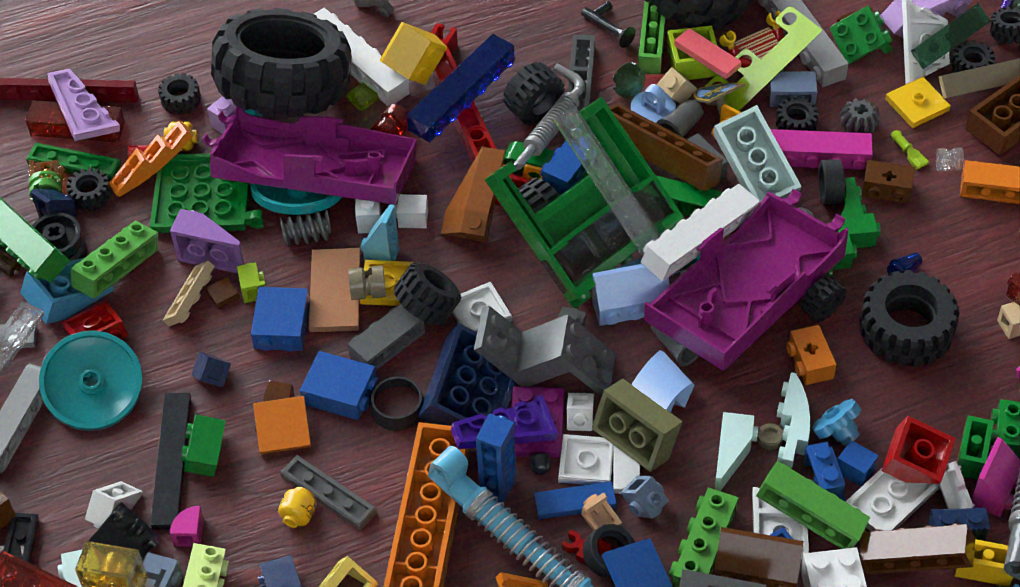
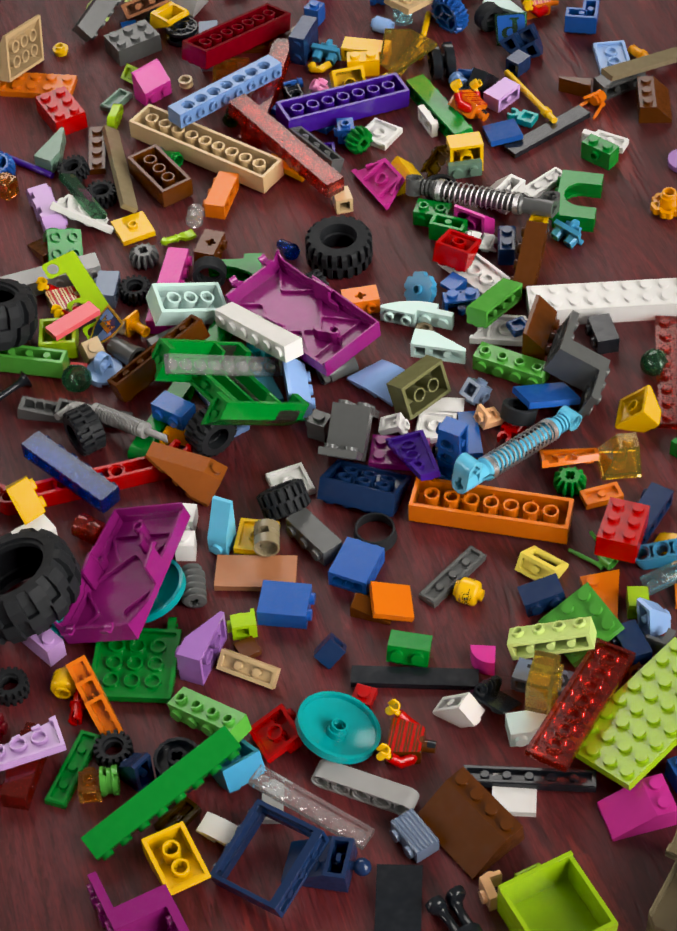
camera: 85 degrees left, 5 degrees down
(71, 451) = (405, 739): none -> torso
(147, 410) = (365, 694): none -> red plate

